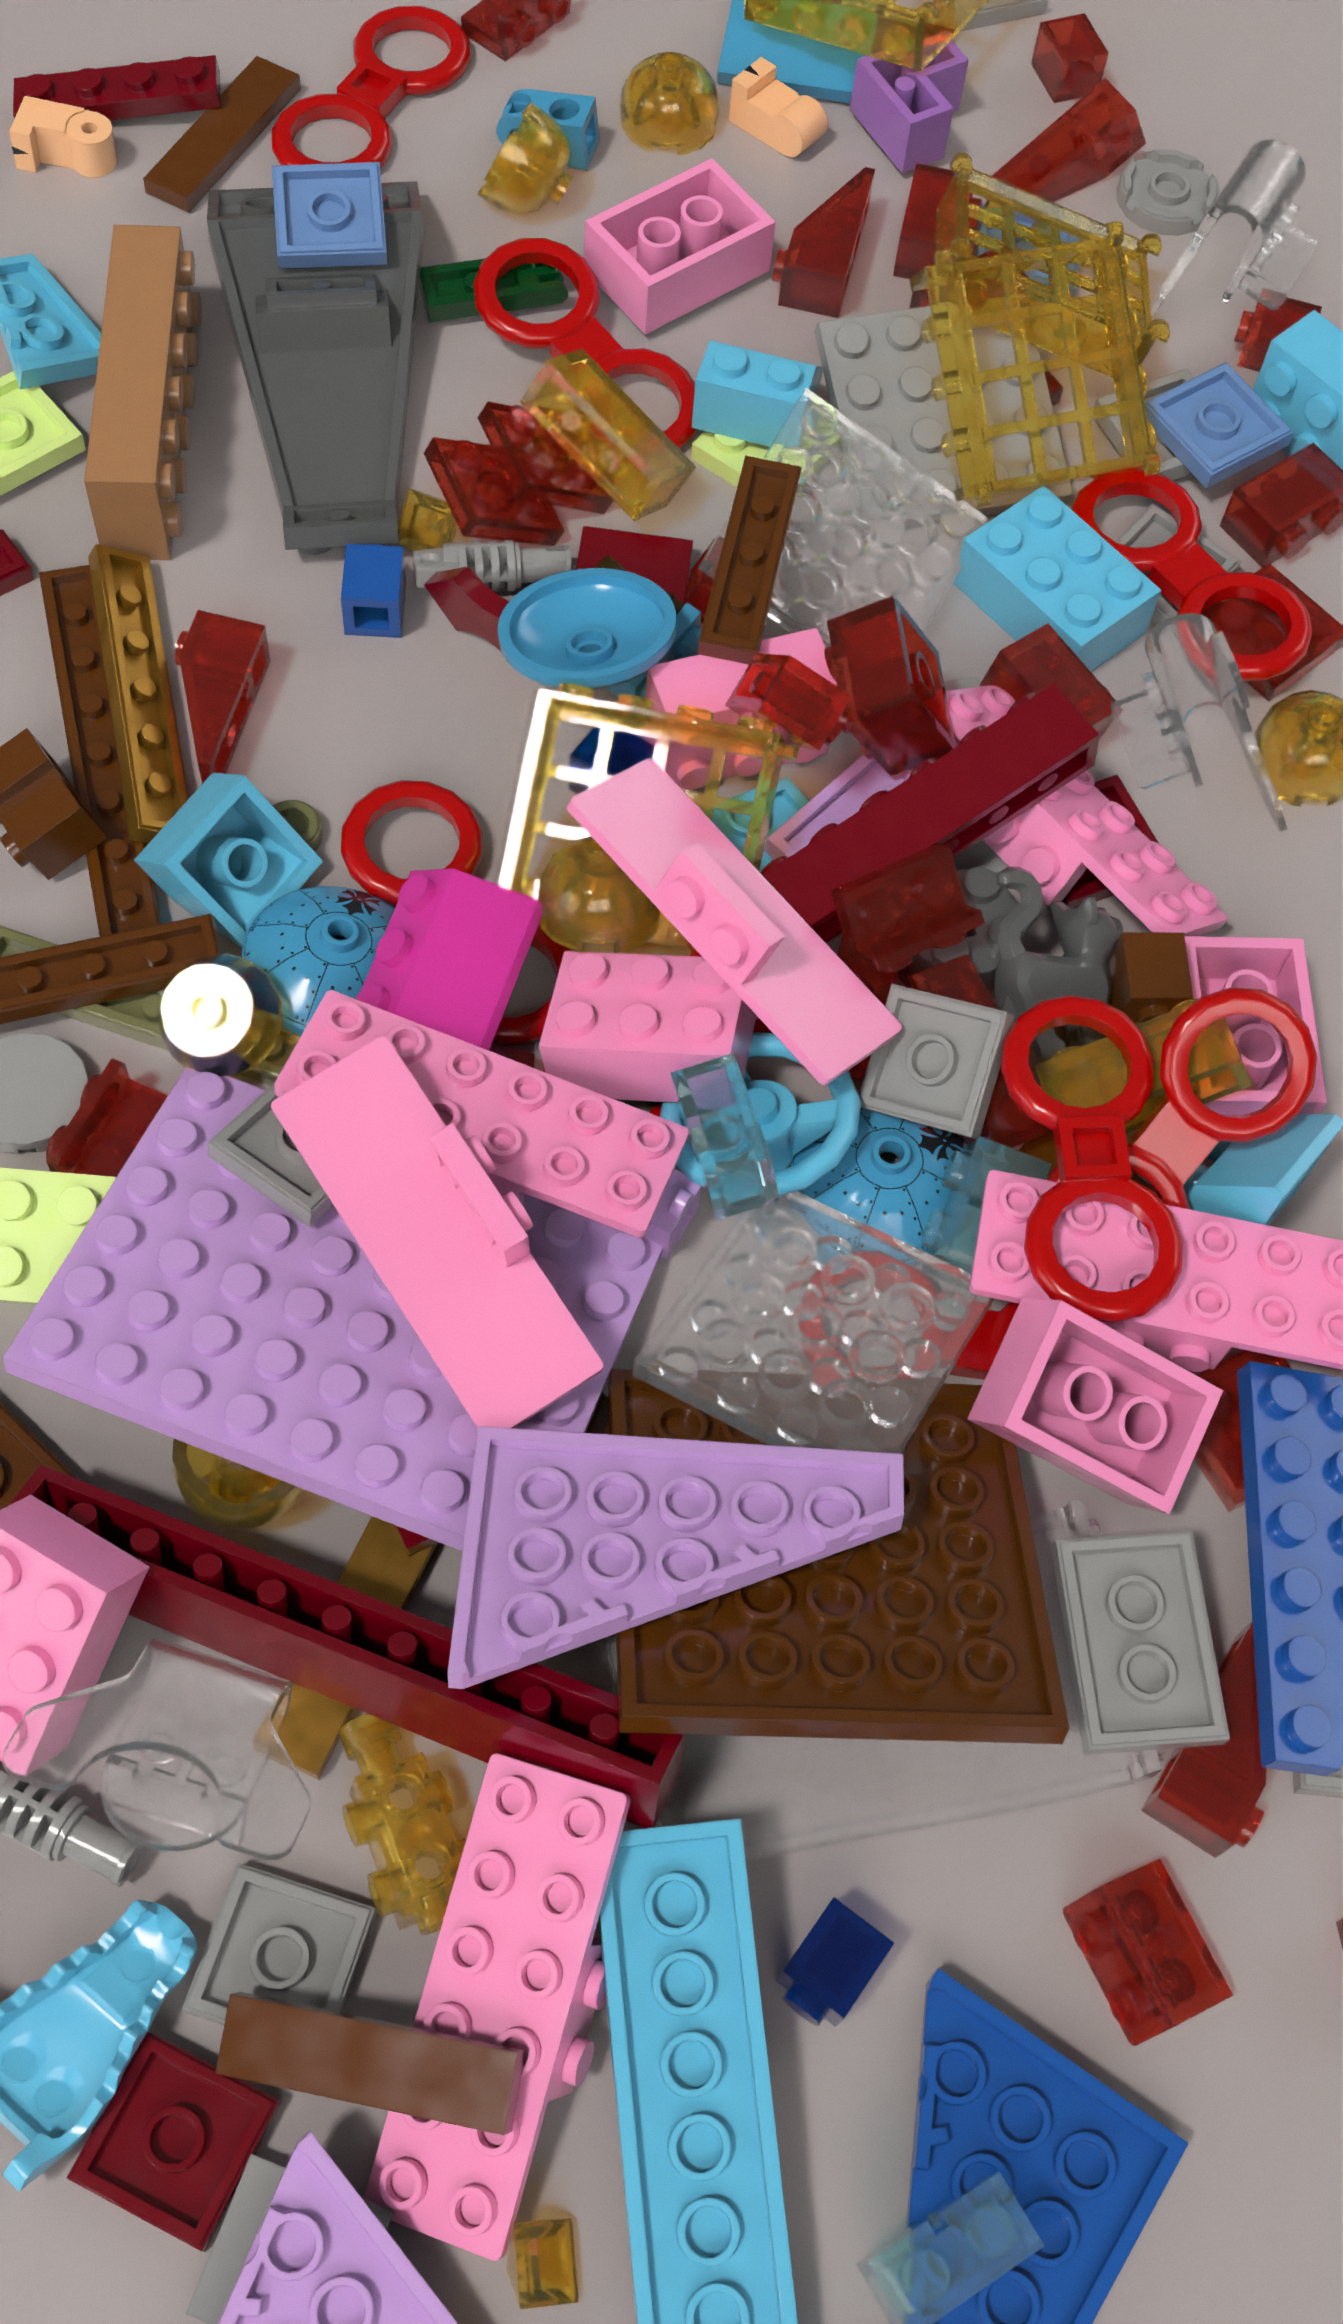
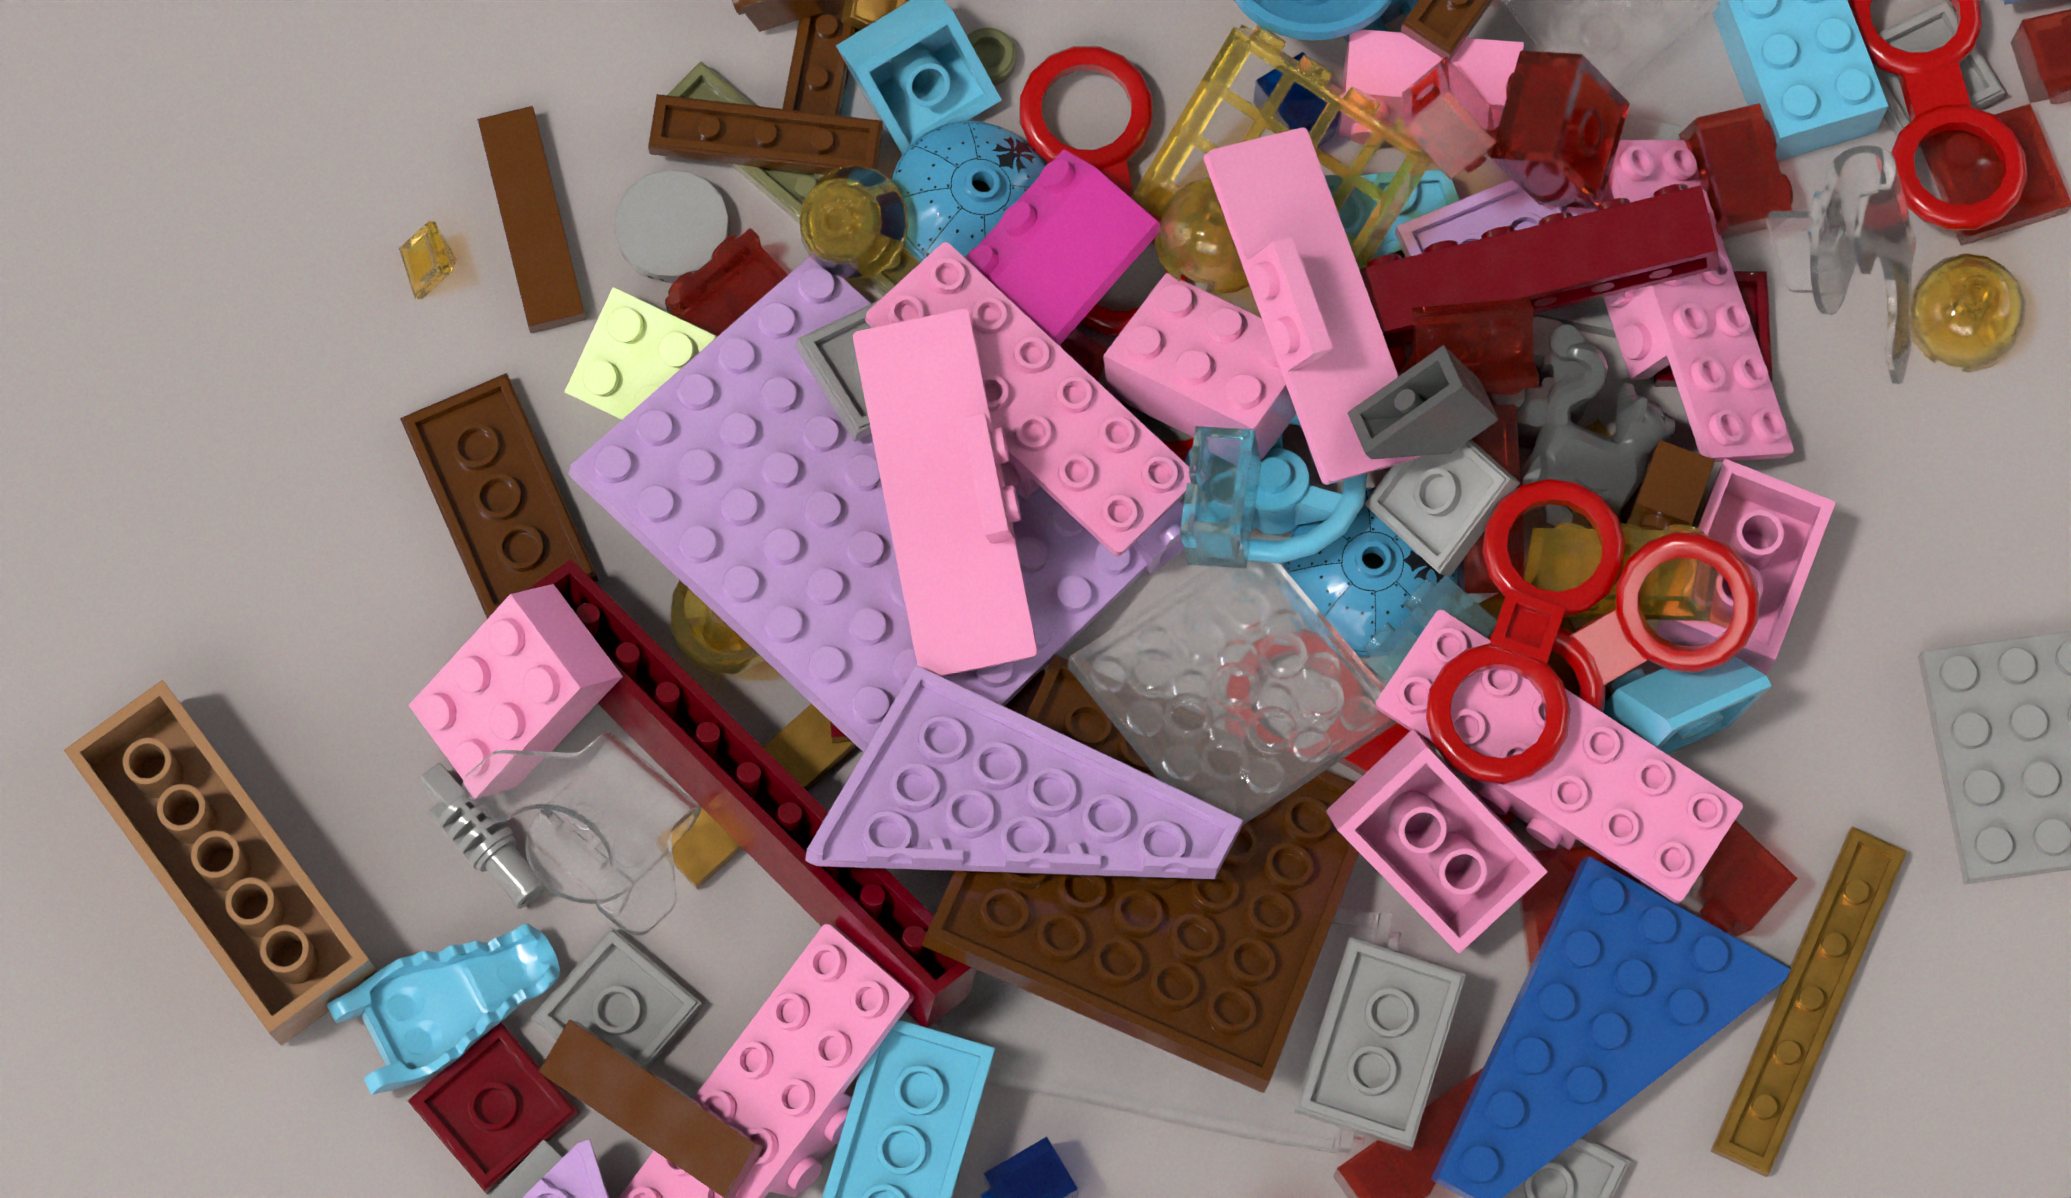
camera: 30 degrees right, 10 degrees up
(396, 1834) = (740, 956): clear yellow brick -> none
(894, 974) = (1424, 410): none -> dark grey slope

